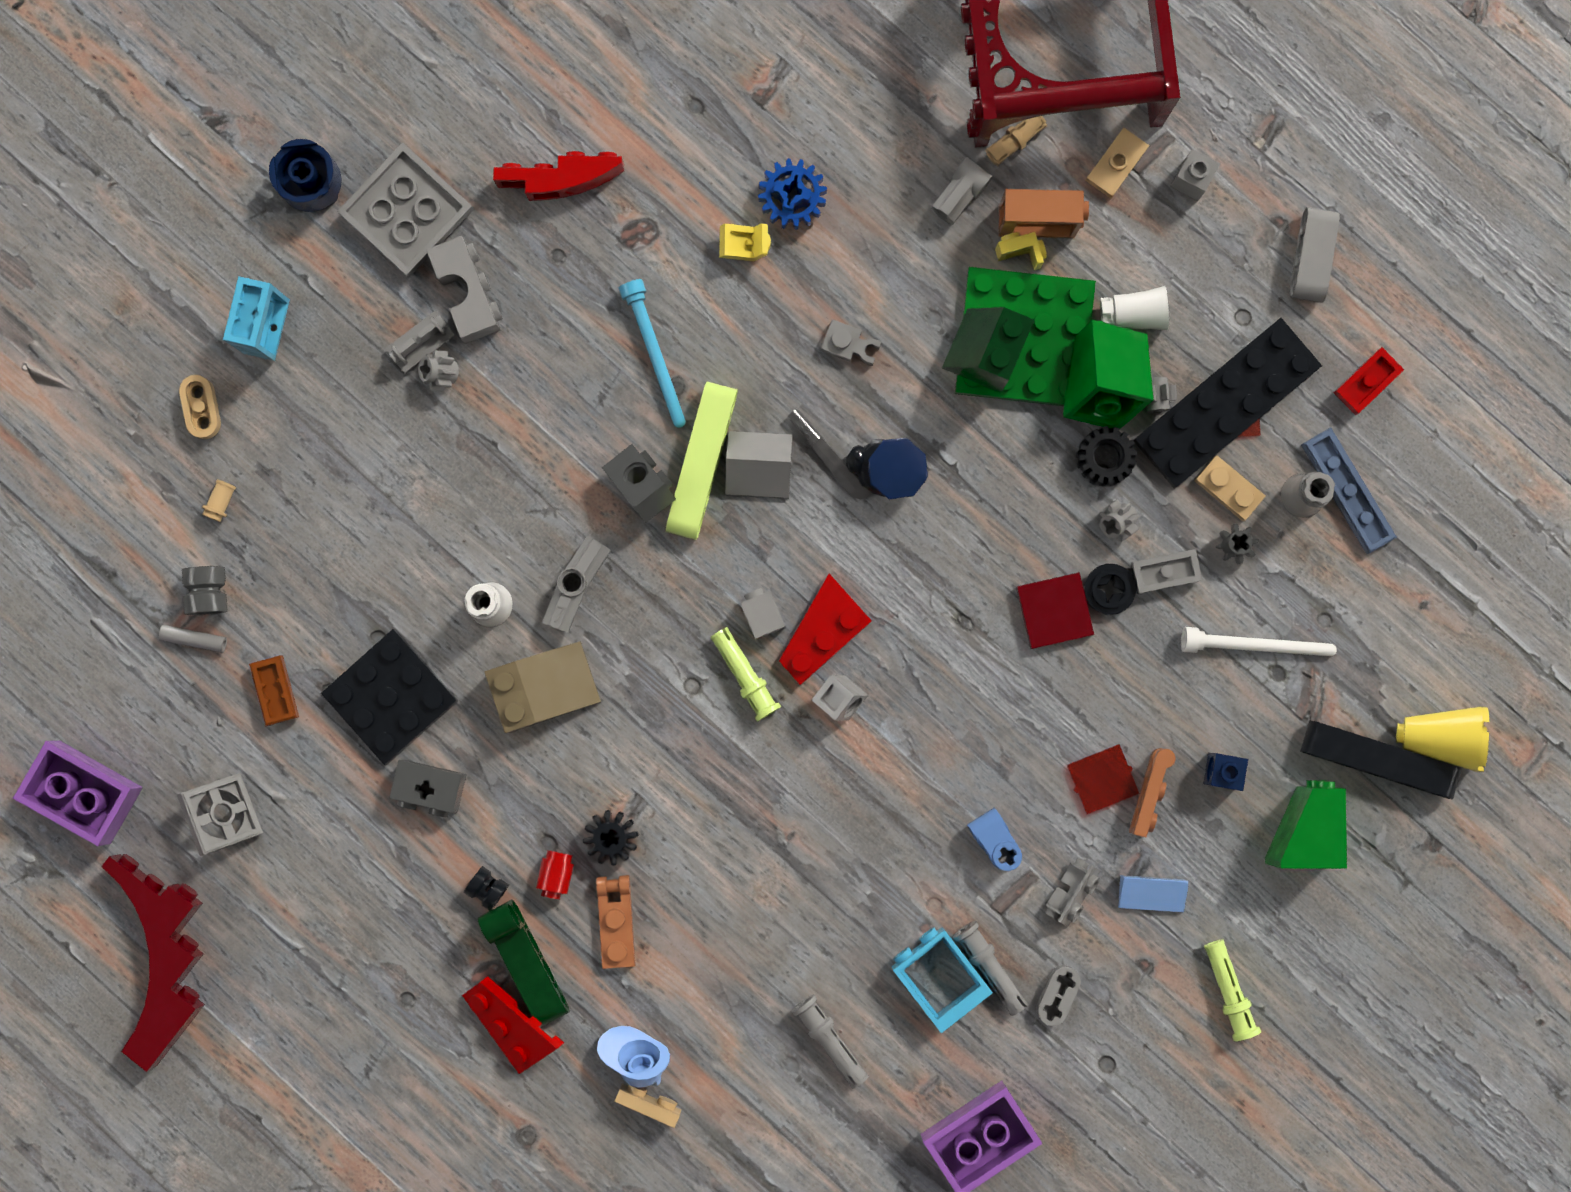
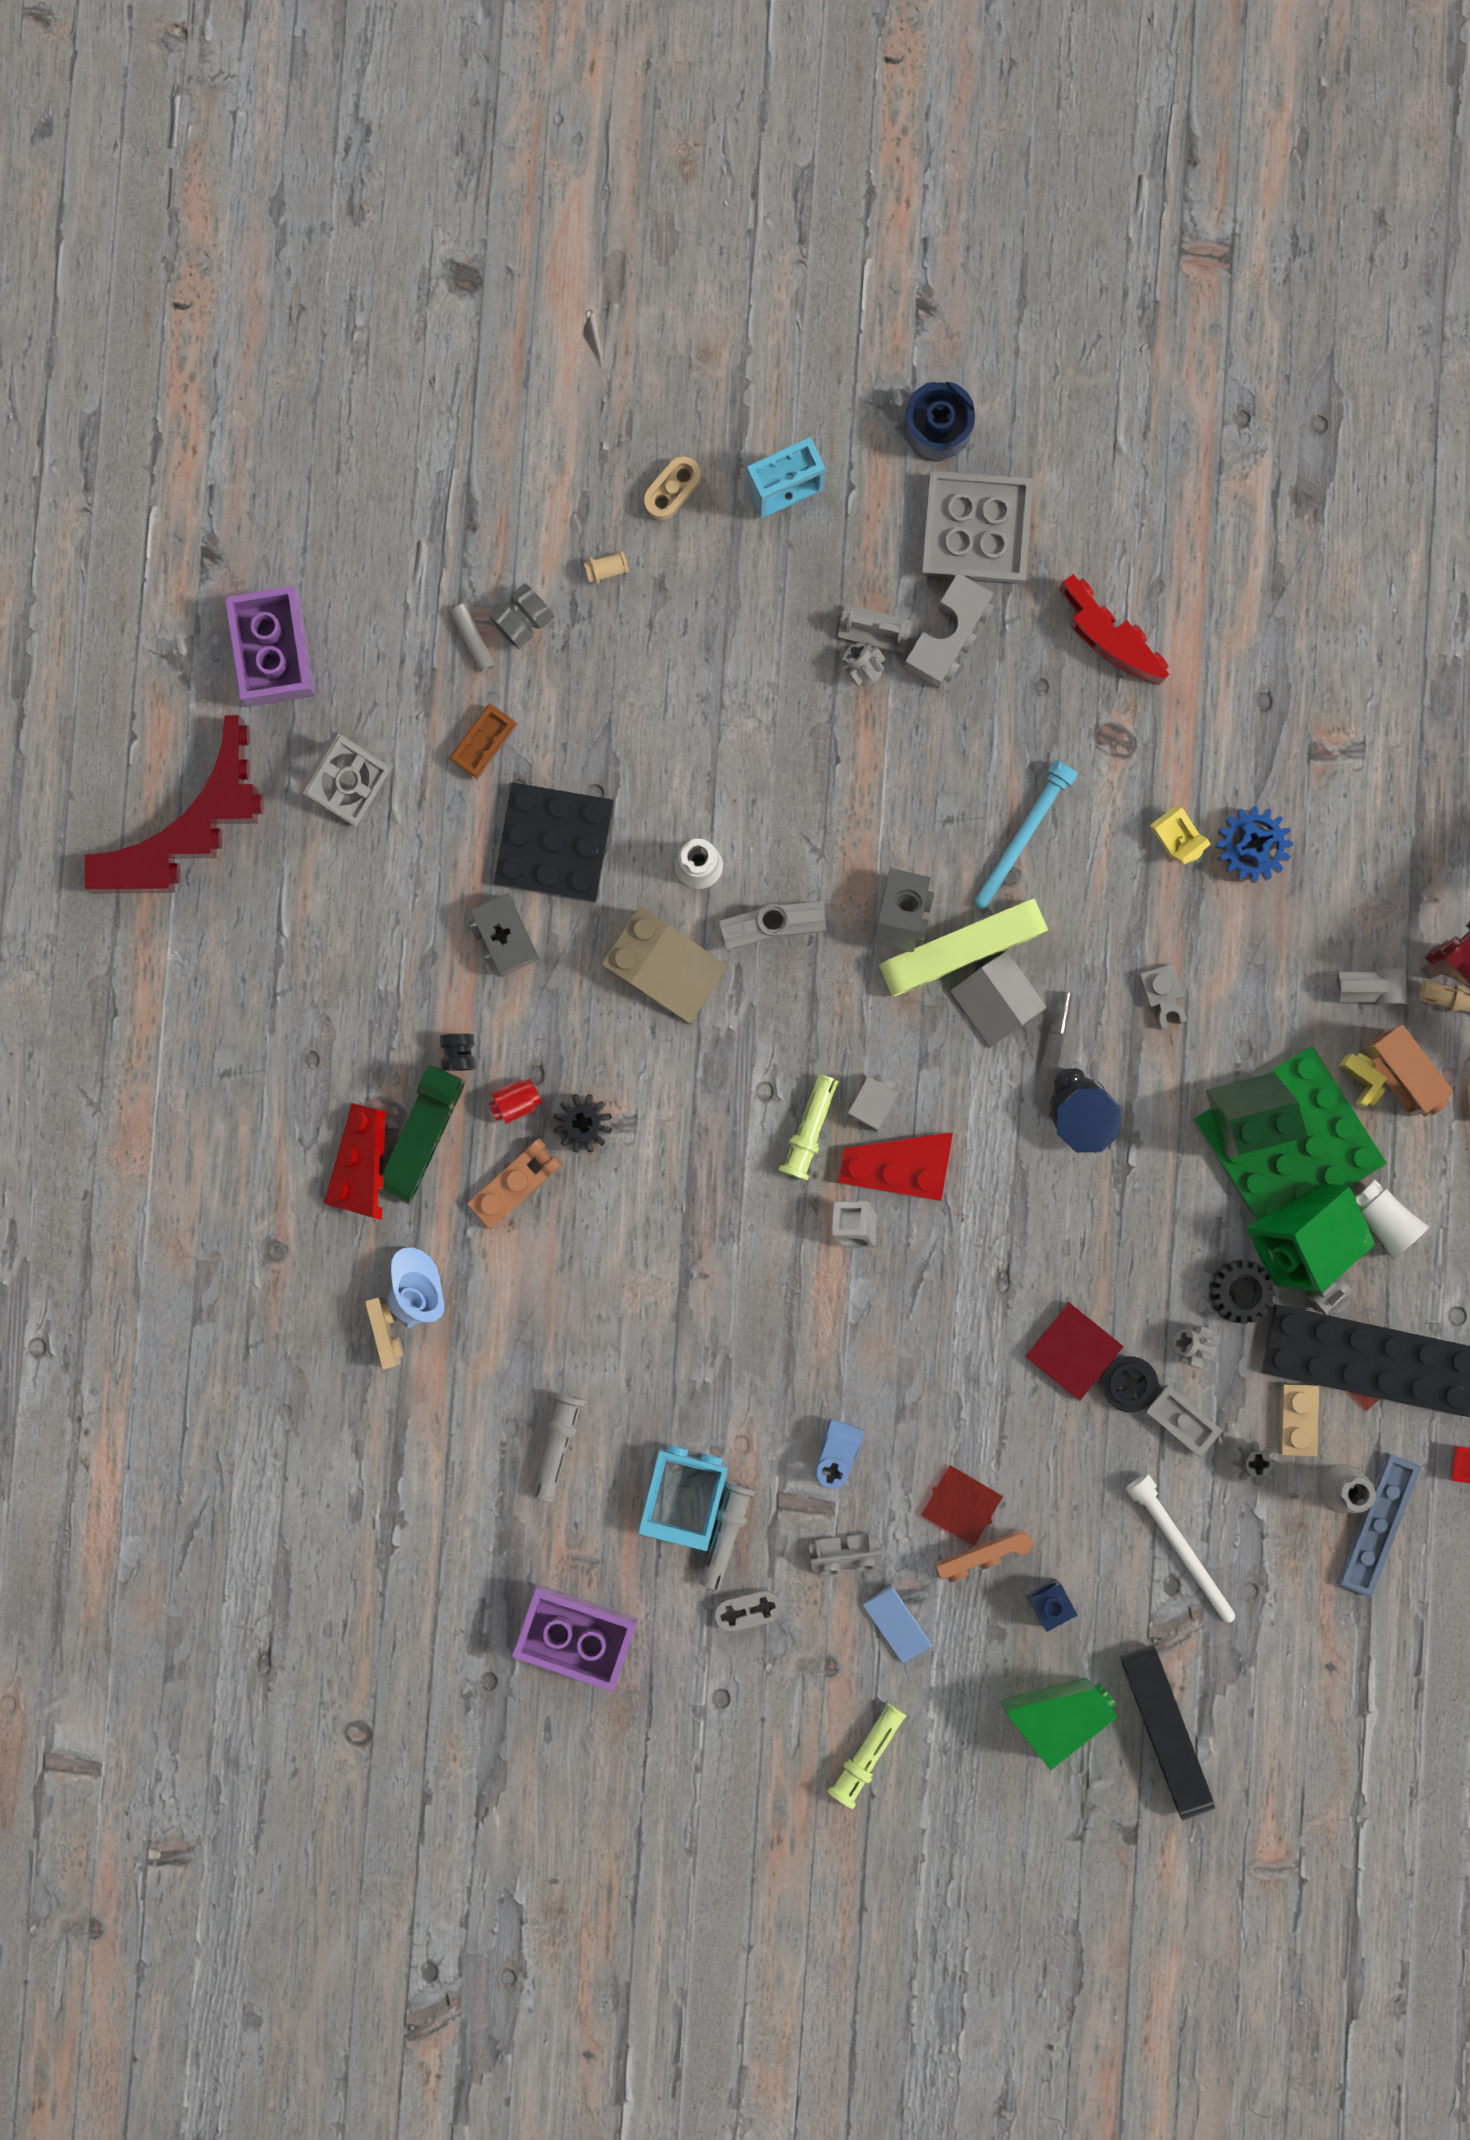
camera: 50 degrees right, 0 degrees up
(1448, 736) = (1233, 1774): light yellow cone -> none

